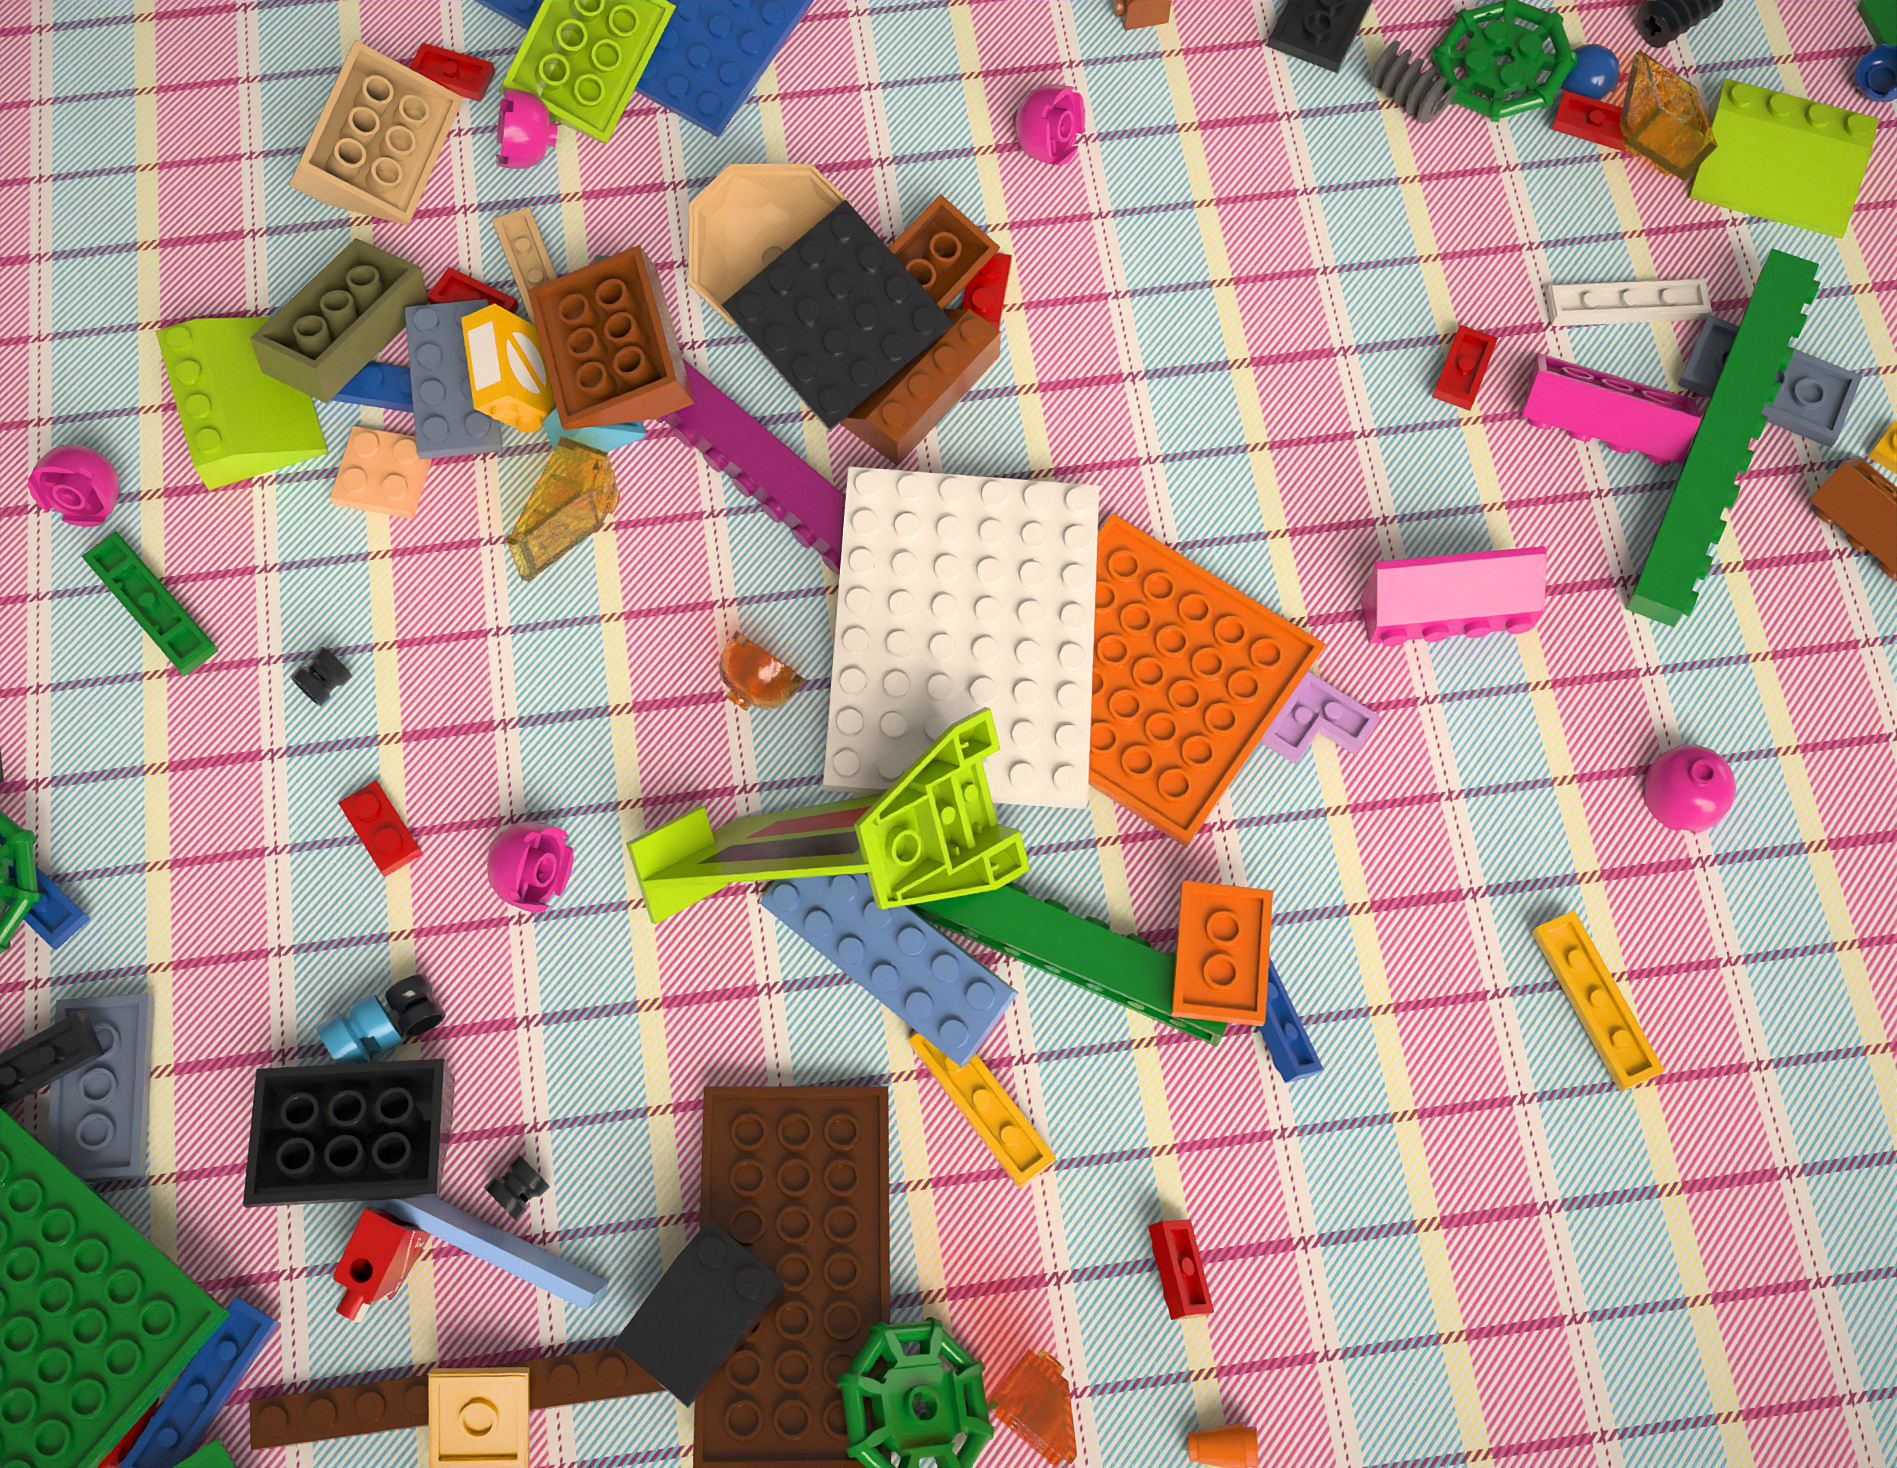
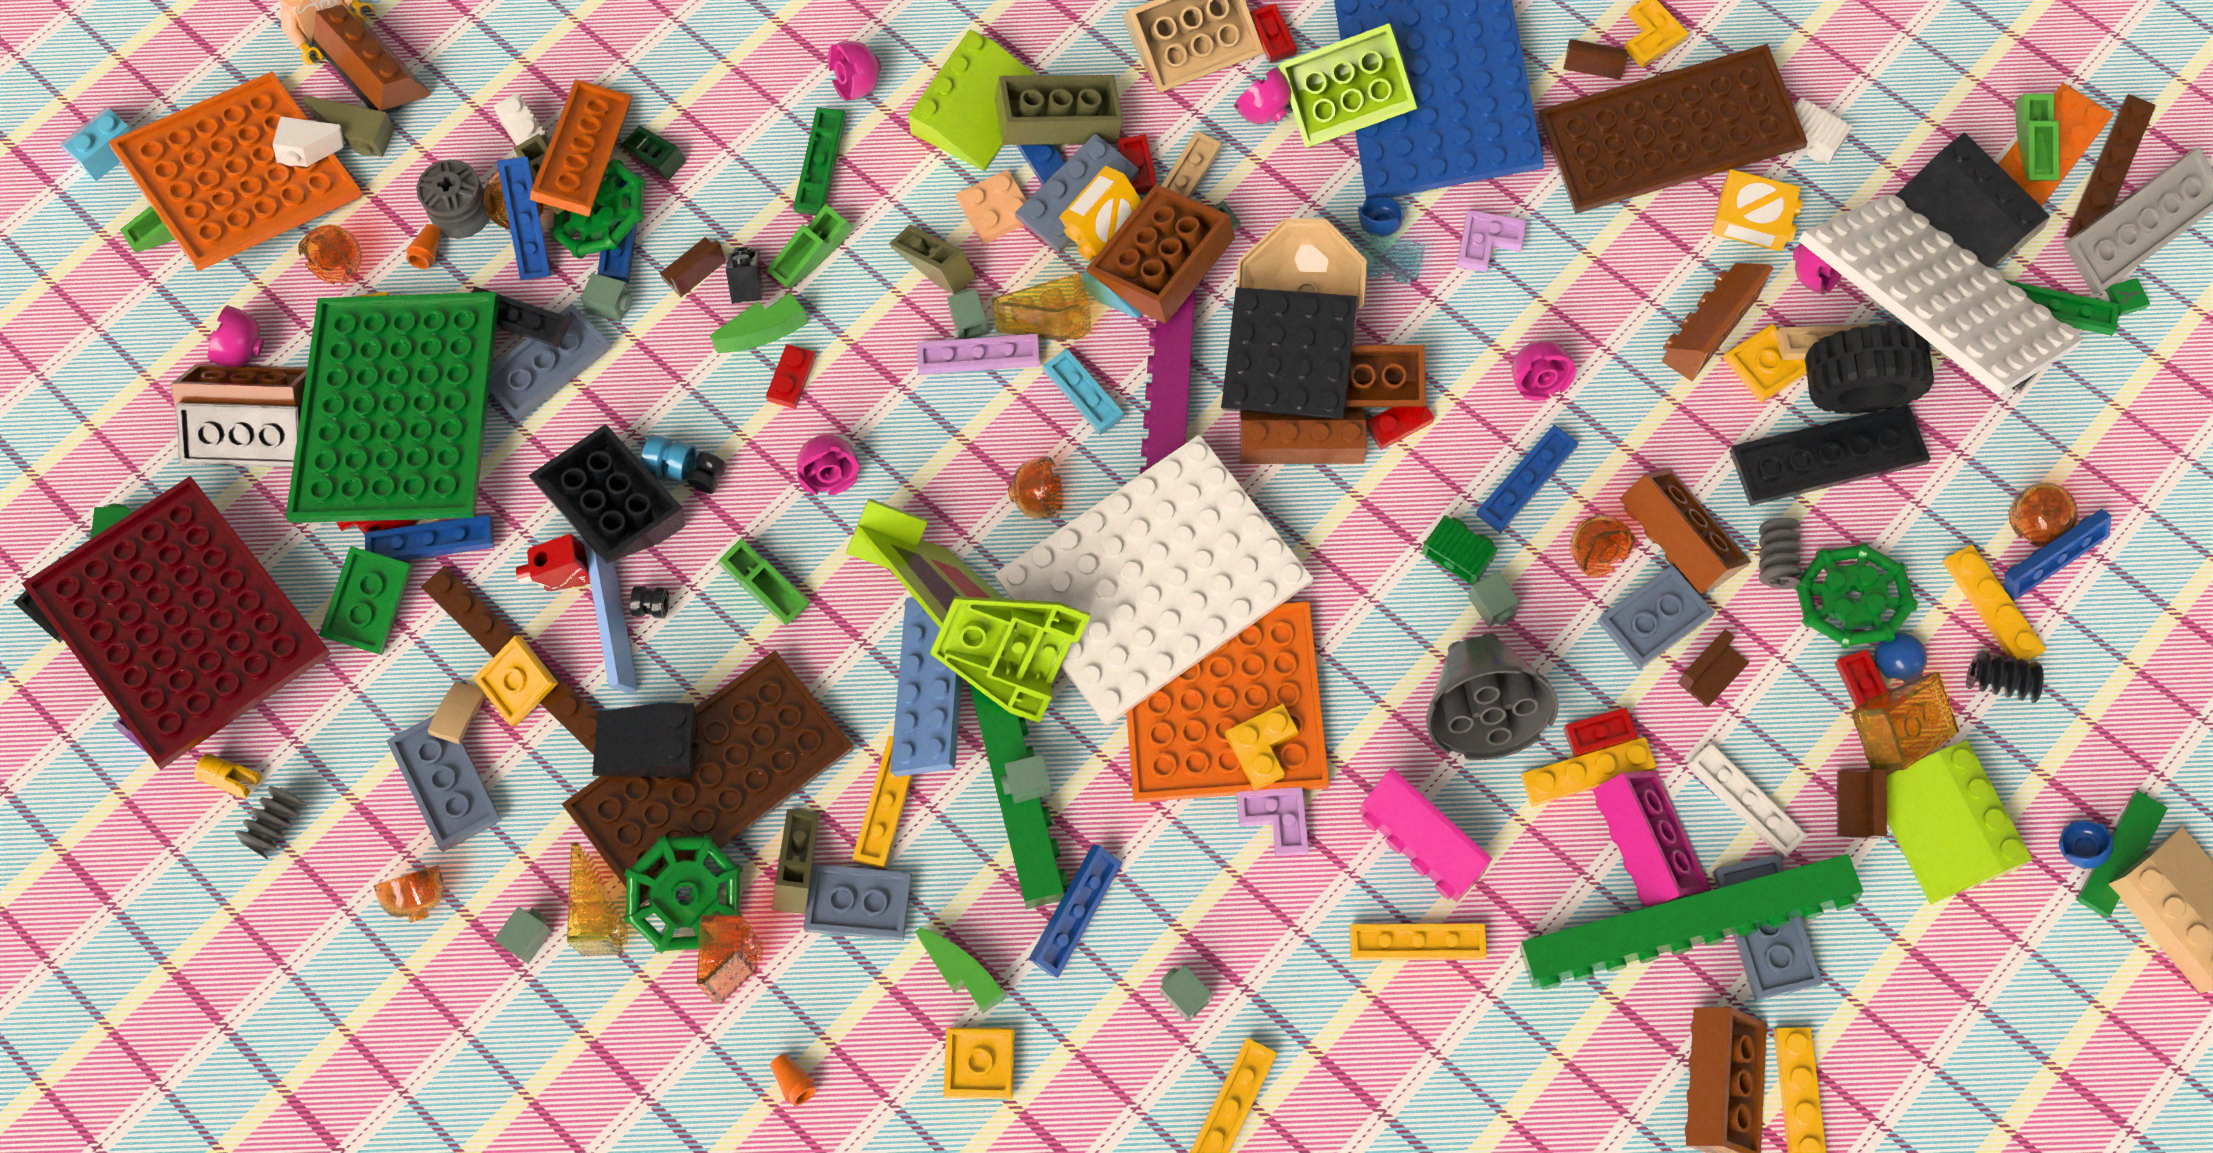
camera: 55 degrees right, 0 degrees up
(87, 955) = (606, 297): none -> sand green brick
(142, 832) = (693, 266): none -> reddish brown panel
(211, 783) = (744, 275): none -> black slope
(244, 690) = (809, 247): none -> bright green slope
(290, 812) = (760, 325): none -> bright green slope
(327, 669) = (848, 276): black wheel -> none
(387, 574) = (934, 258): none -> olive slope
(486, 591) = (967, 314): none -> sand green brick
(540, 617) = (978, 354): none -> lavender plate
(604, 1041) = (763, 582): none -> bright green slope
(683, 547) = (1083, 391): none -> medium azure plate
(753, 133) = (1381, 216): none -> blue hair
(813, 146) = (1393, 257): none -> clear light blue bracket
(856, 65) = (1488, 231): none -> lavender plate
(974, 1252) = (795, 861): none -> olive slope
(1073, 1219) = (858, 902): none -> sand blue plate
(1092, 926) = (1026, 779): none -> sand green brick
(1149, 227) = (1527, 479): none -> blue plate
(1174, 339) = (1459, 549): none -> green brick
(1180, 1269) = (873, 981): red plate -> none
(1222, 953) = (1071, 862): orange plate -> none
(1224, 678) = (1254, 741): none -> yellow plate
(1240, 1163) = (961, 970): none -> bright green slope
(1253, 350) = (1494, 599): none -> sand green brick
(1273, 216) = (1600, 543): none -> clear orange cylinder
(1321, 142) = (1684, 530): none -> dark orange slope
(1358, 1224) = (979, 1063): none -> yellow plate
(1364, 424) = (1489, 701): none -> dark grey cone
(1386, 232) = (1655, 617): none -> sand blue plate
(1441, 951) = (1185, 992): none -> sand green brick
(1476, 227) = (1713, 670): none -> reddish brown panel
(1493, 410) = (1586, 771): none -> yellow plate
(1552, 691) = (1417, 942): none -> yellow plate
(1689, 788) = (1422, 1070): dark pink cylinder -> none
(1712, 210) = (1862, 804): none -> reddish brown panel

